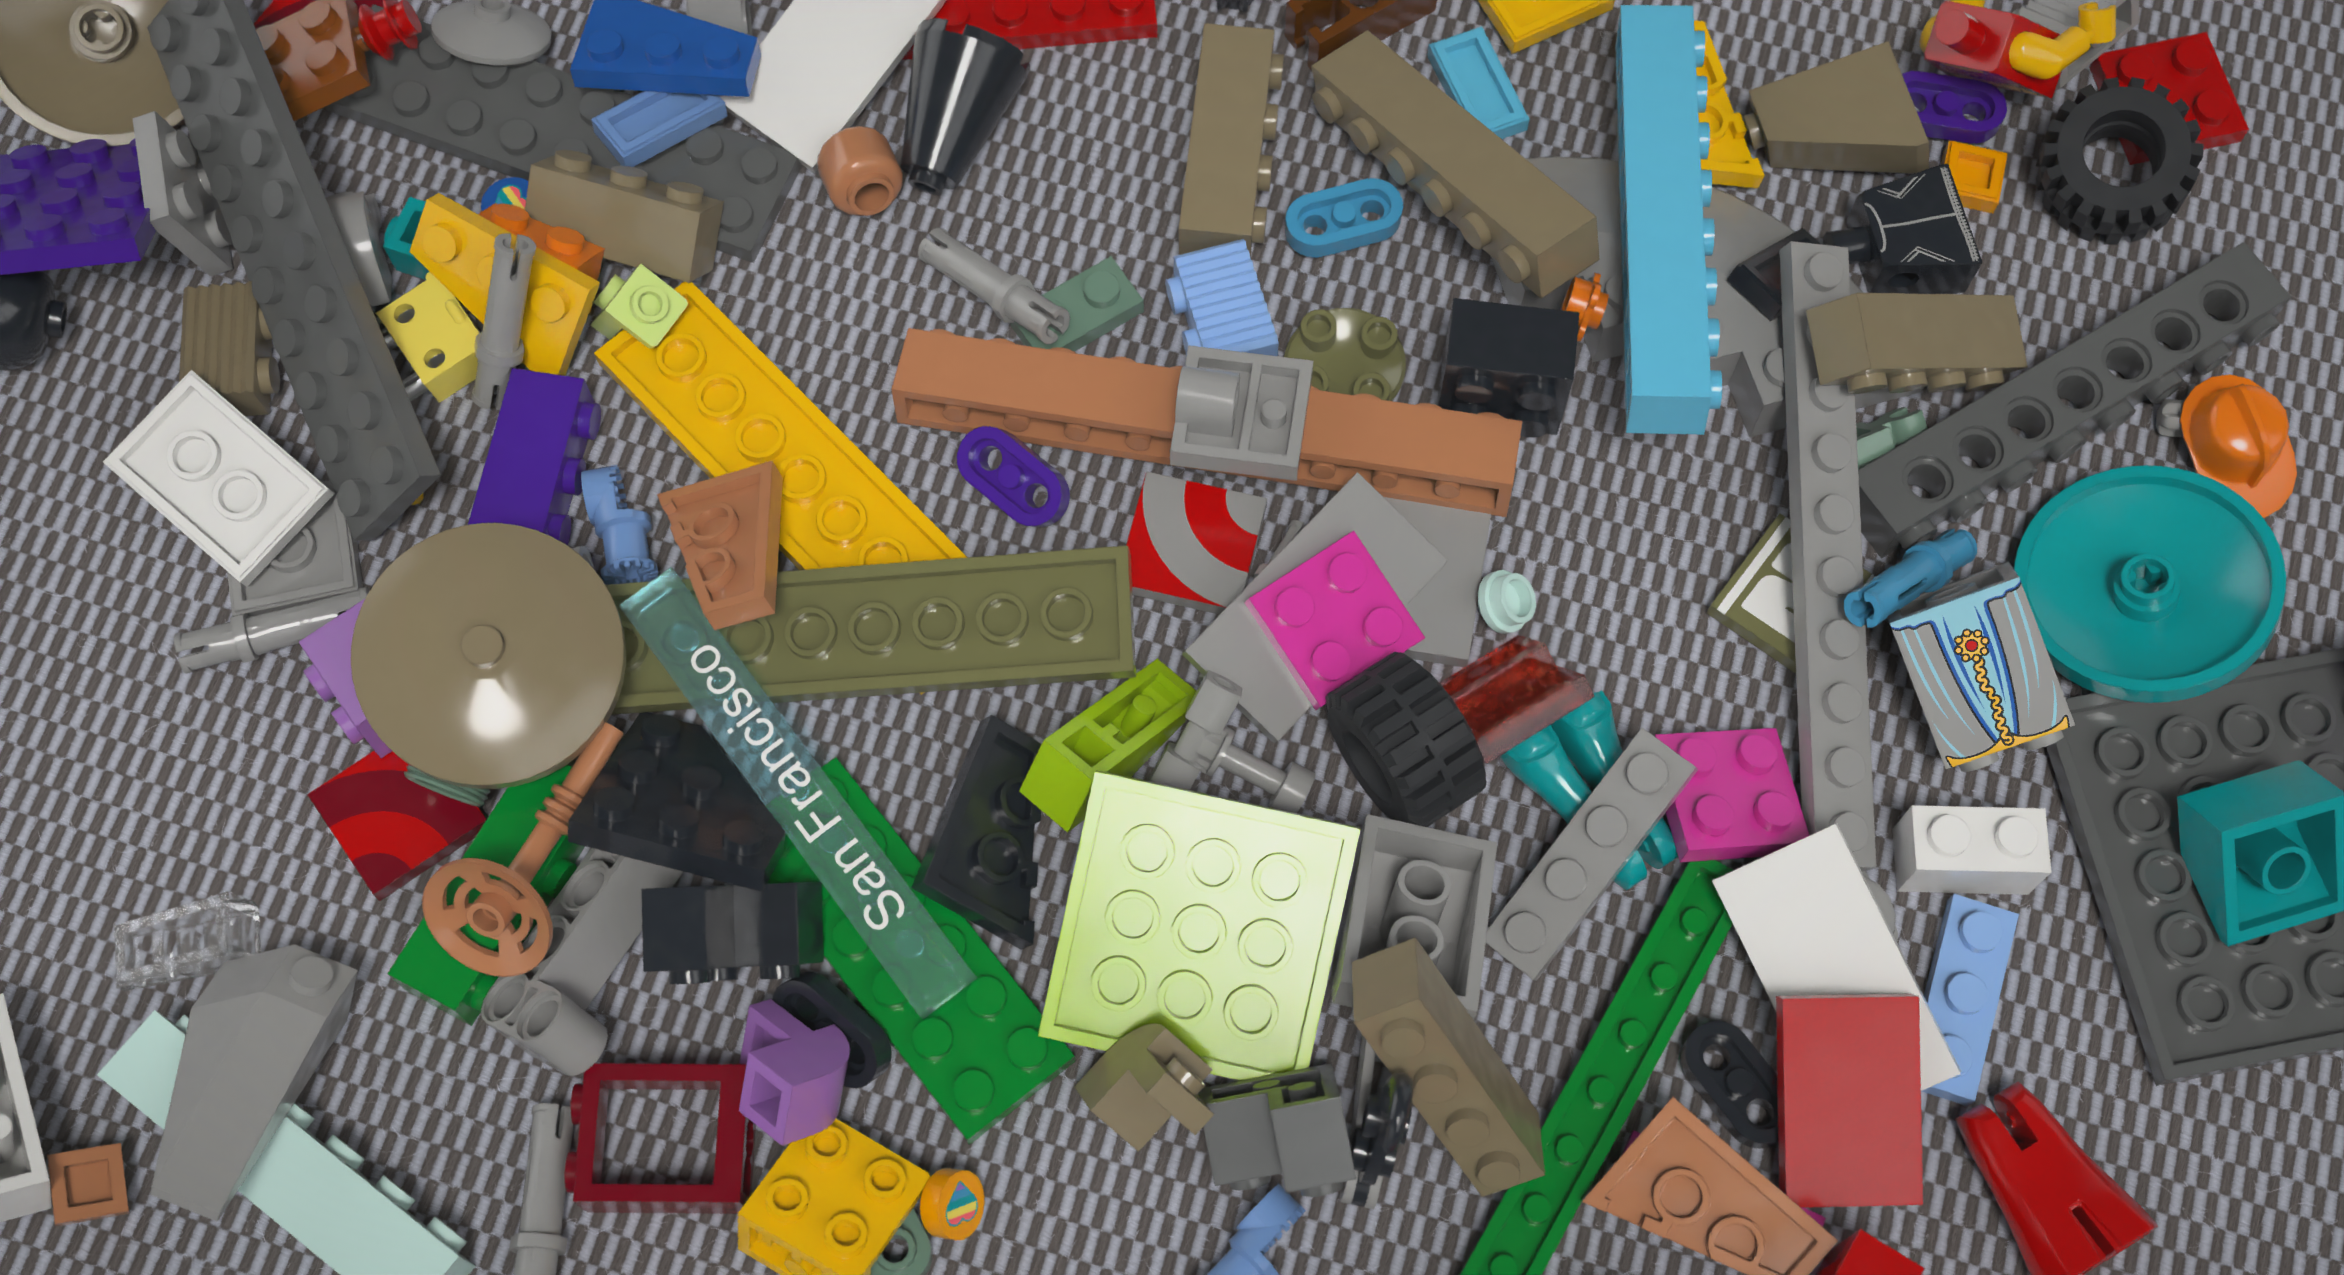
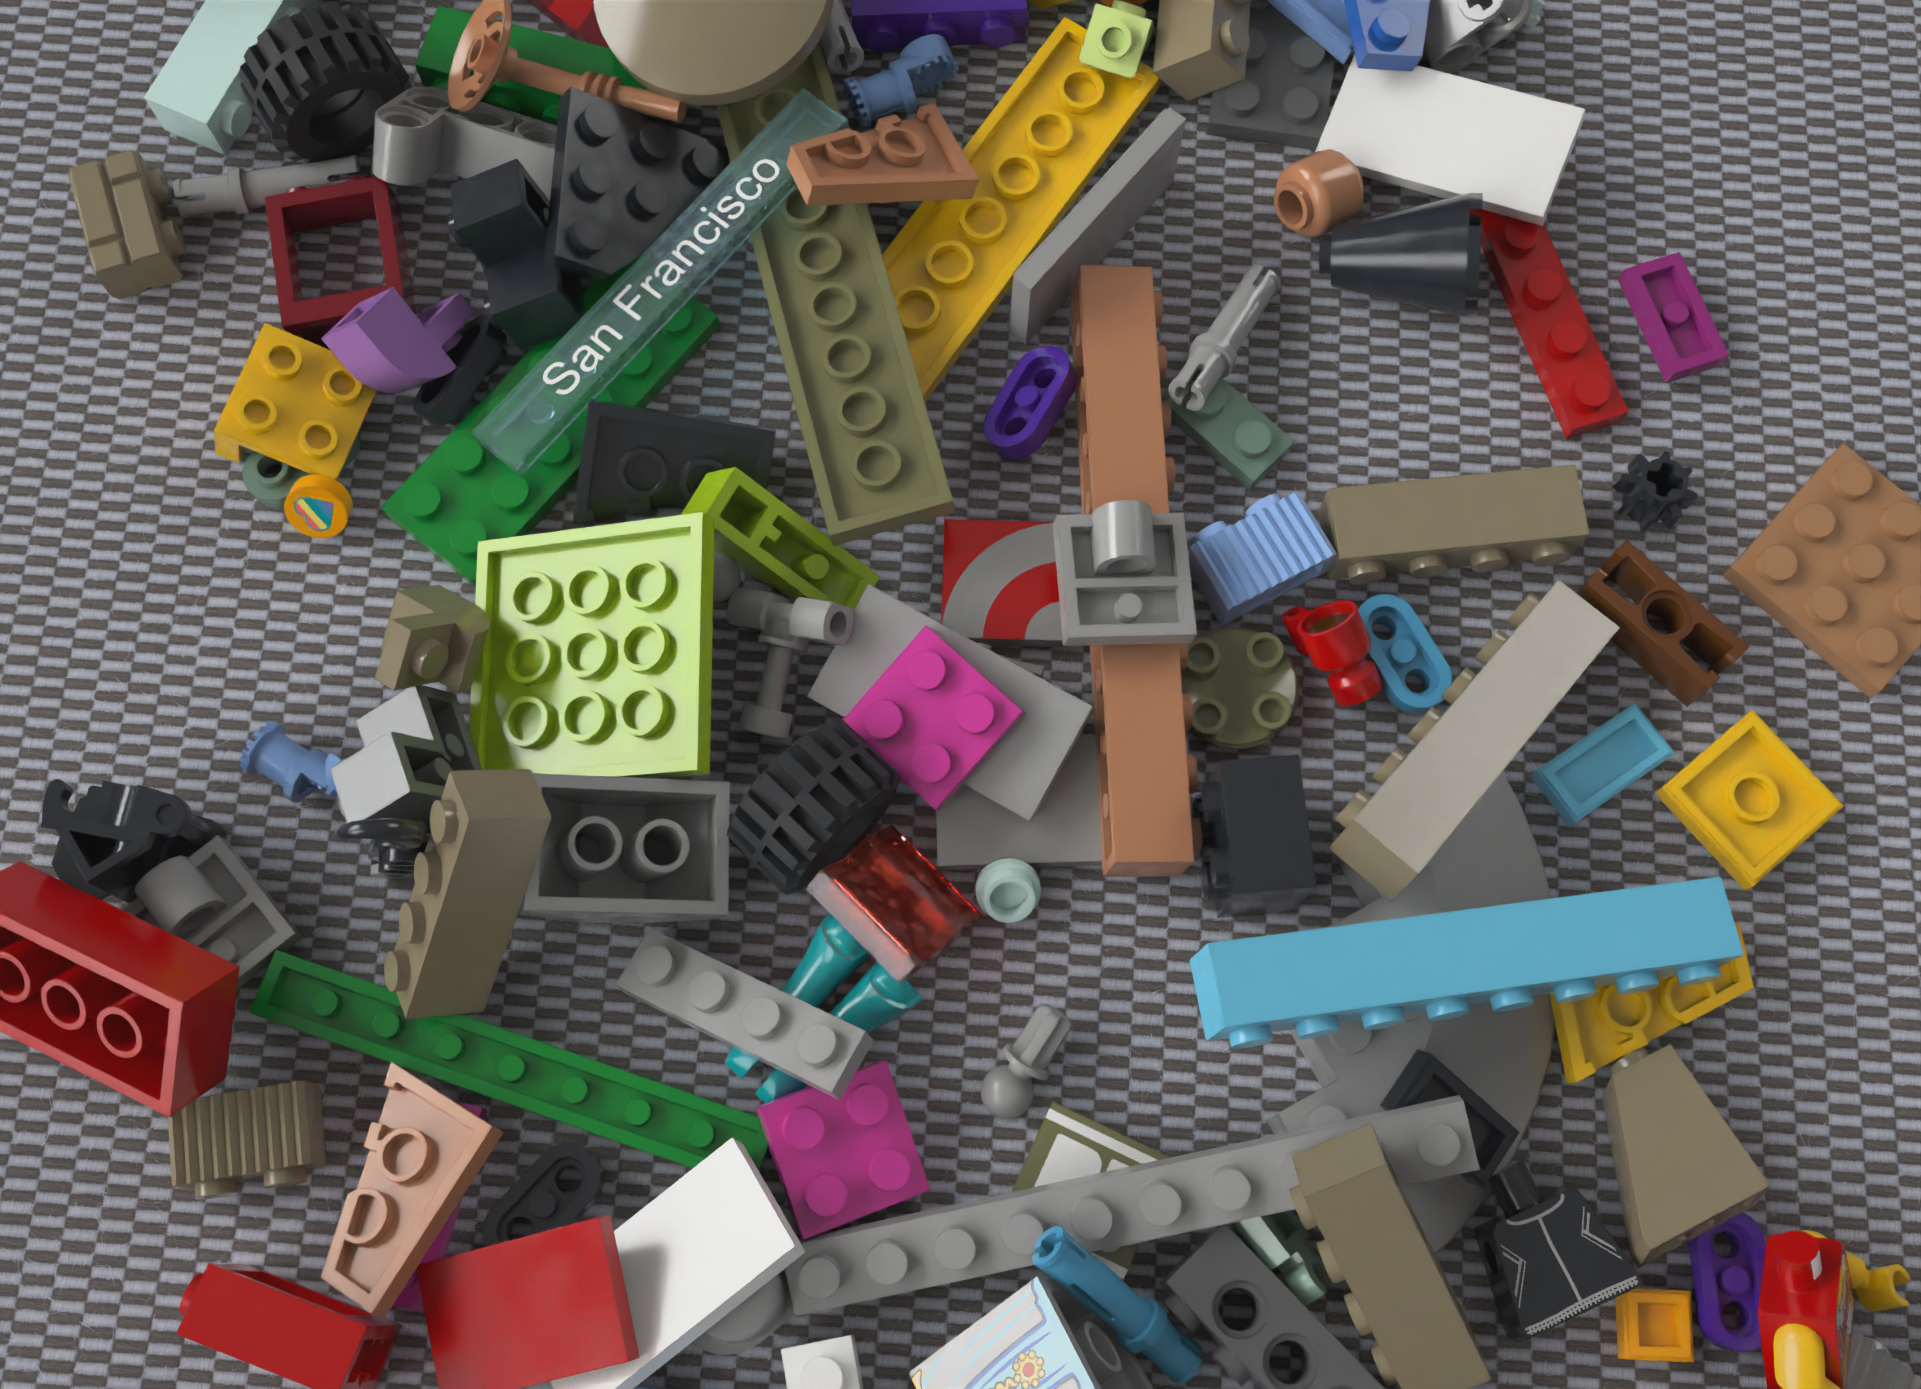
camera: 75 degrees right, 5 degrees up
(456, 1106) = (321, 81): none -> black tyre
(851, 368) = (1095, 224): none -> light grey tile
(1329, 261) = (1336, 644): none -> red piece
(1587, 299) = (1338, 897): orange plate -> none
(1688, 644) = (1009, 1088): none -> light grey axle

